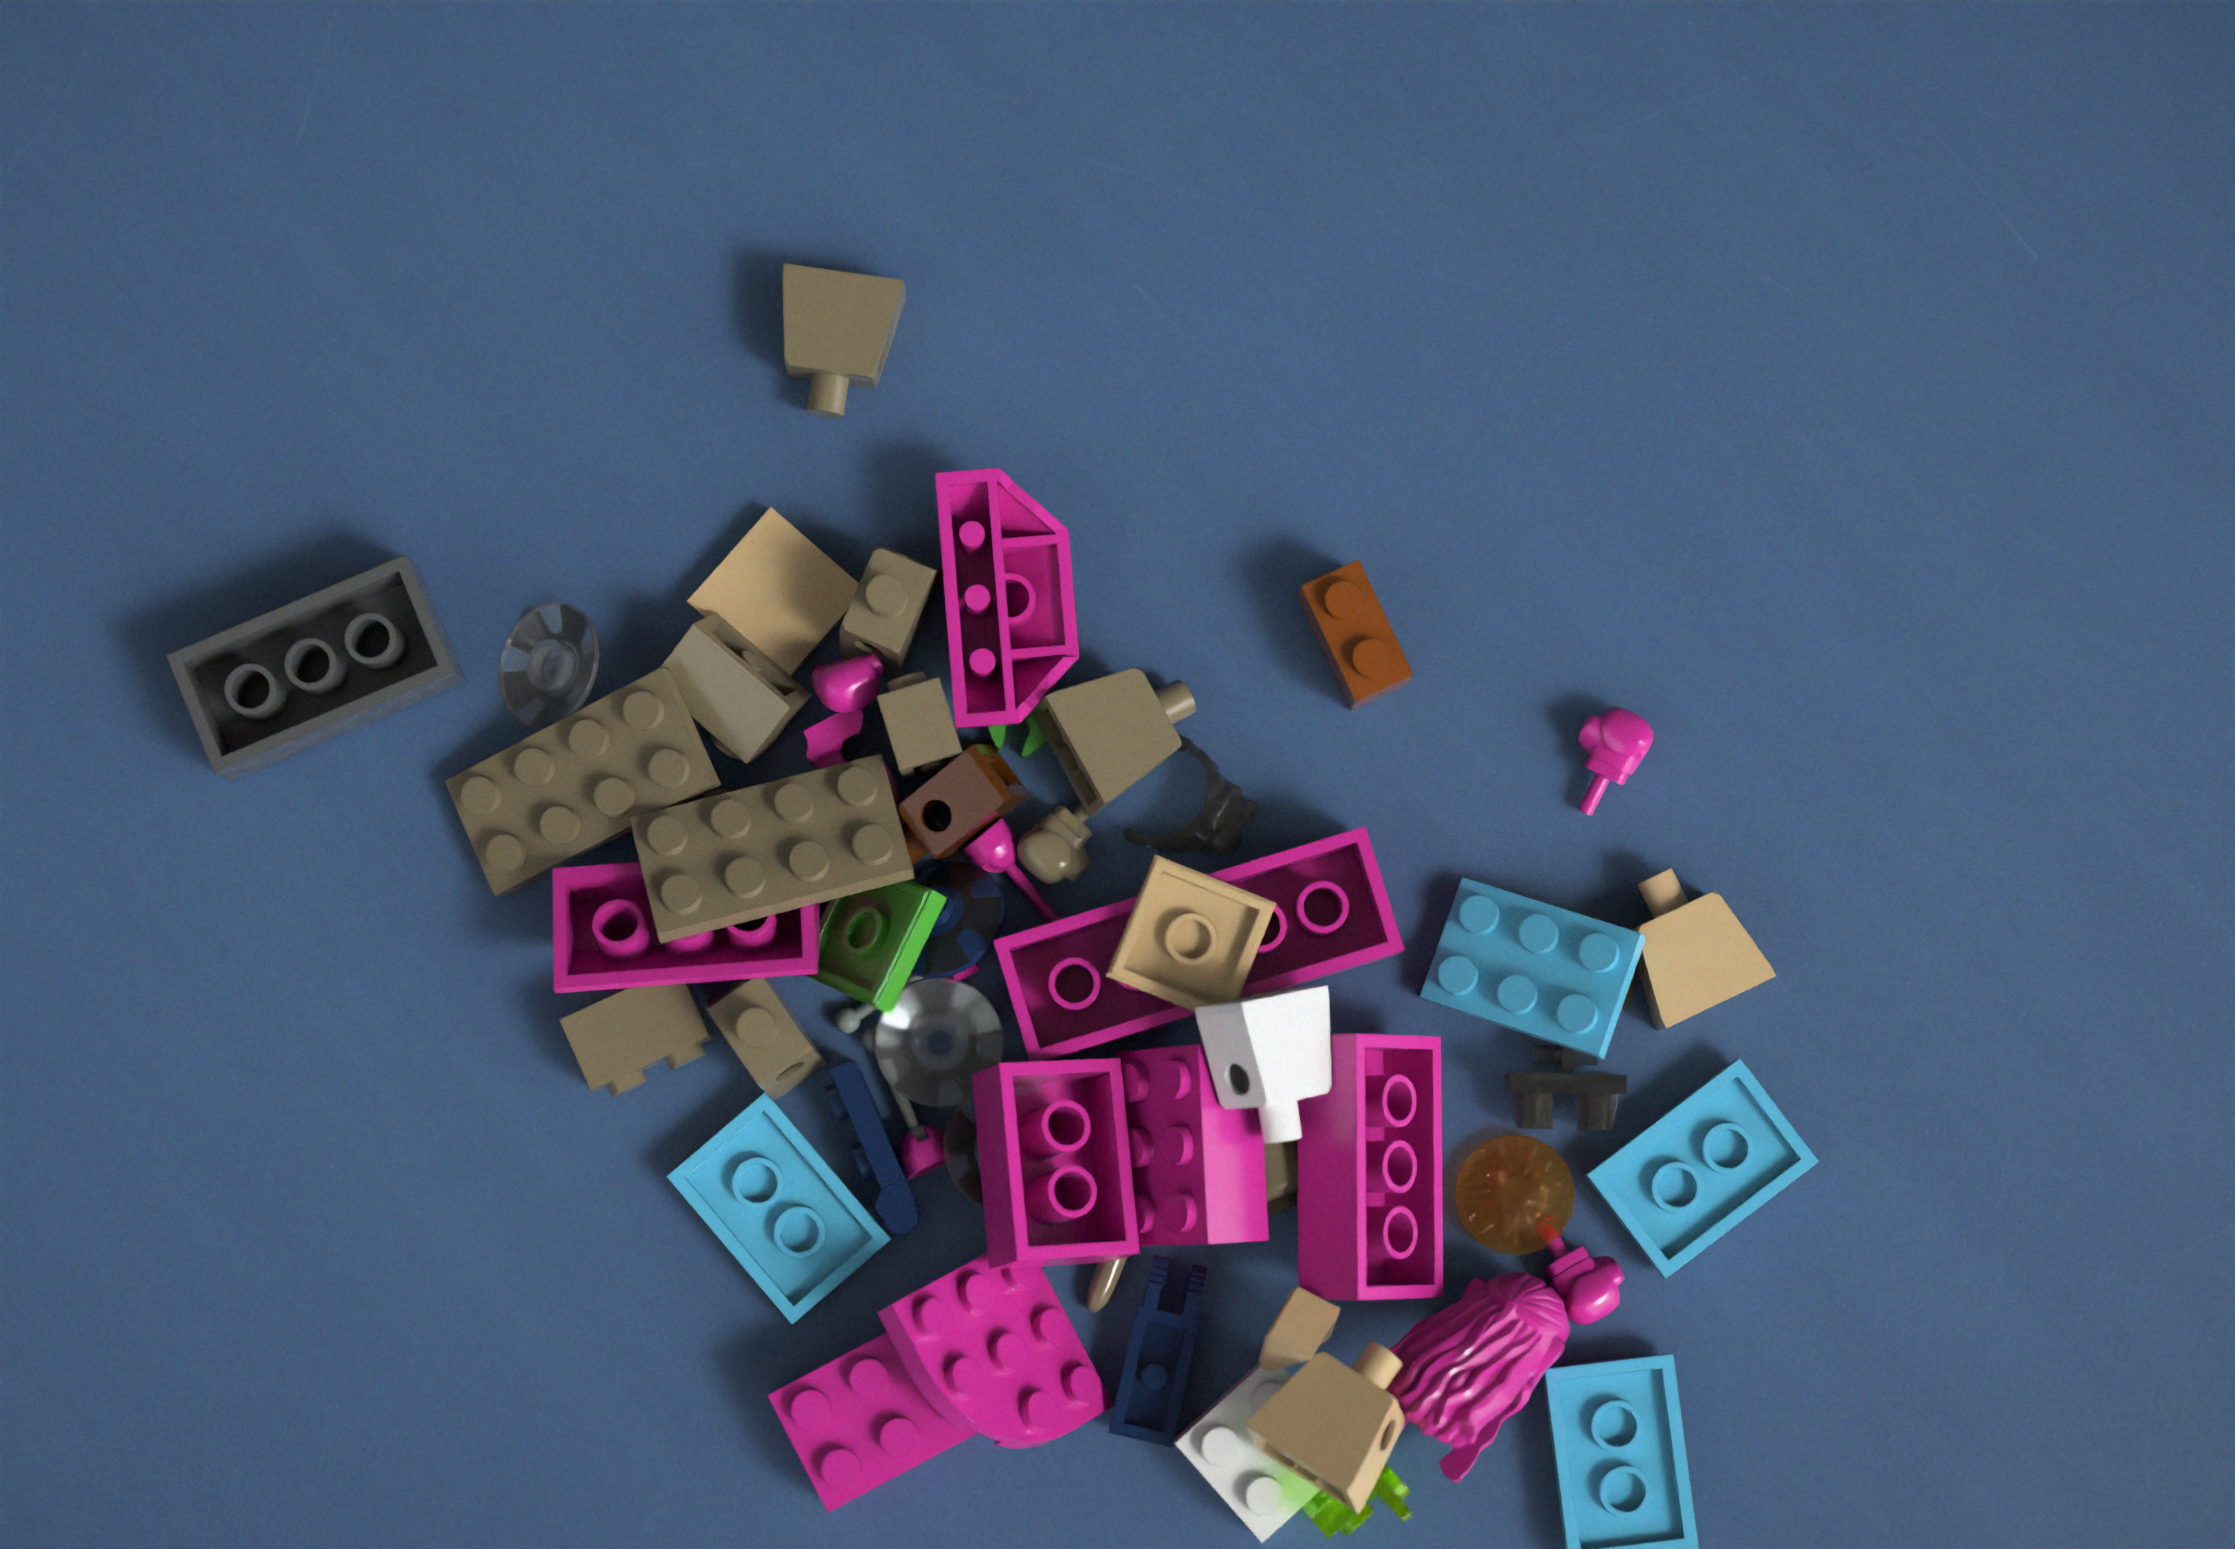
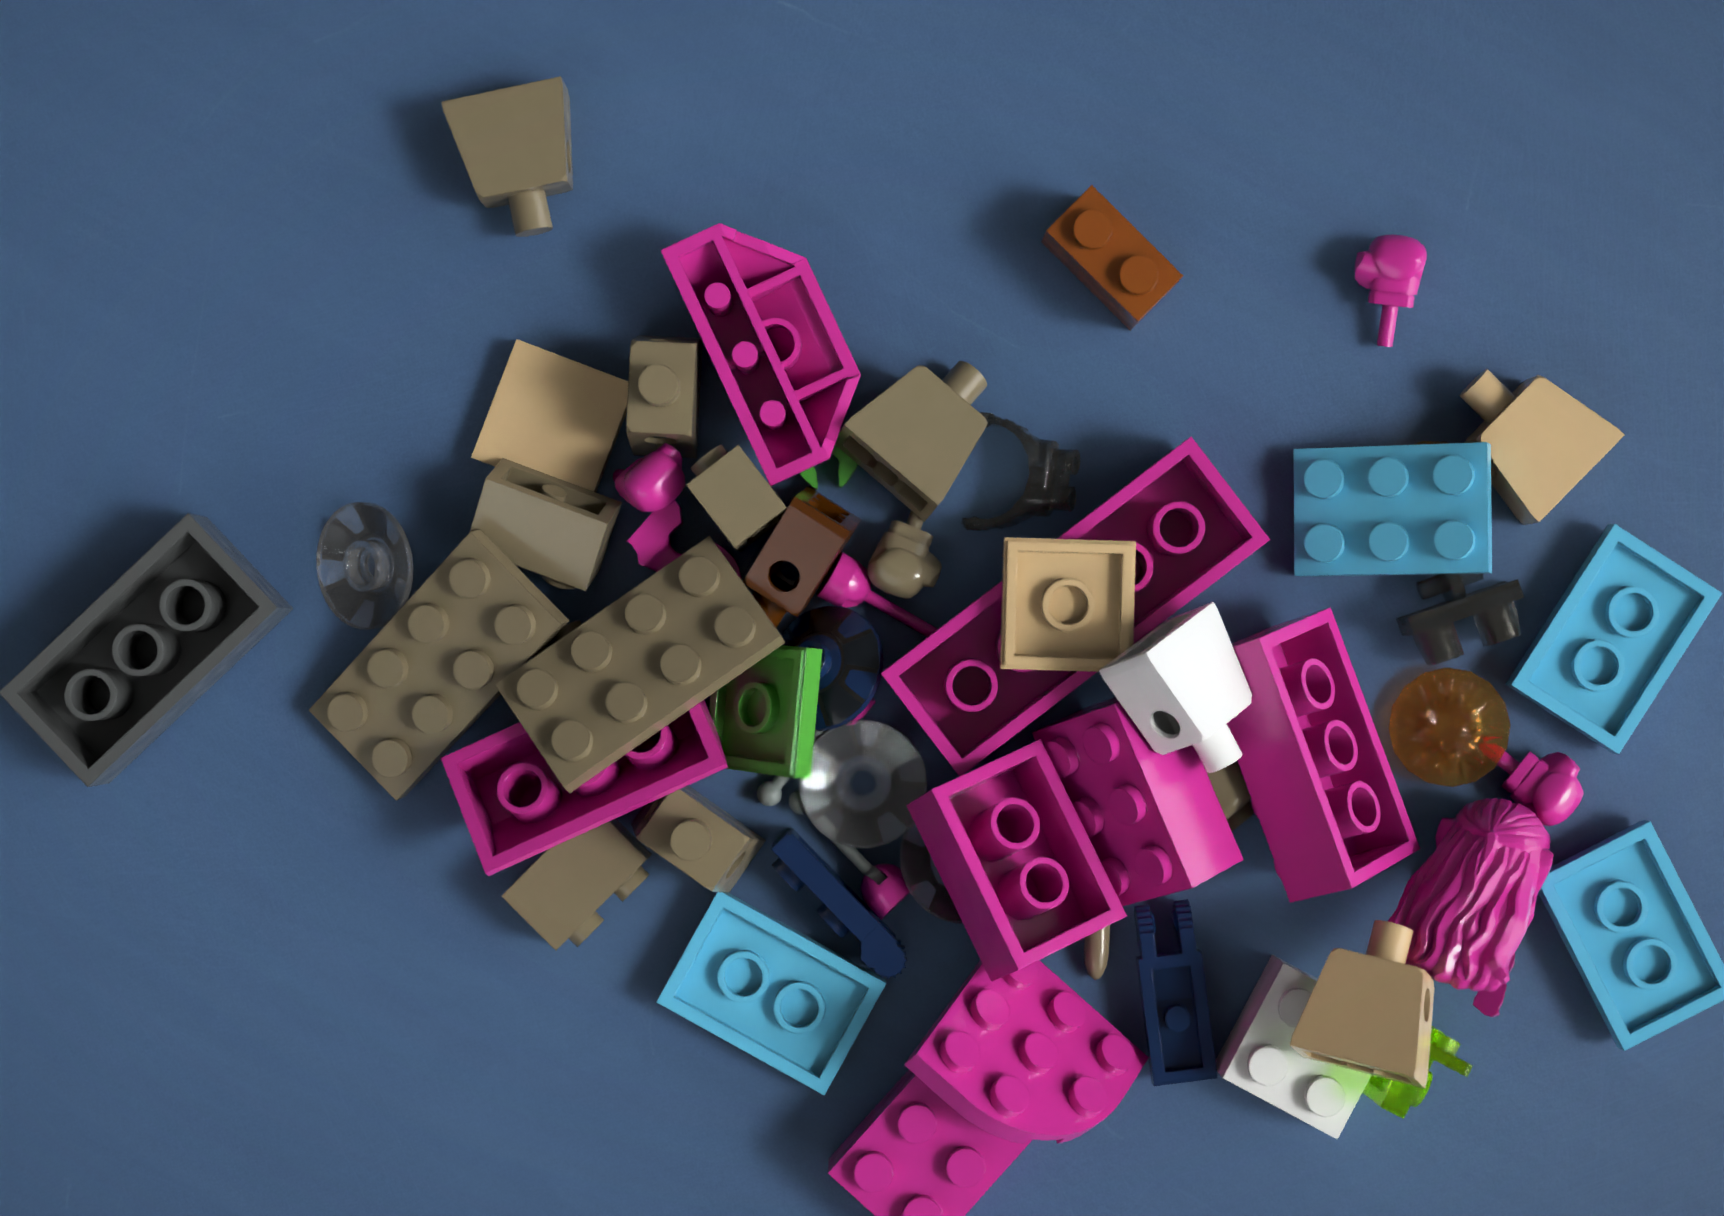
camera: 15 degrees left, 5 degrees up
(1298, 1330) = (1303, 934): tan slope -> none

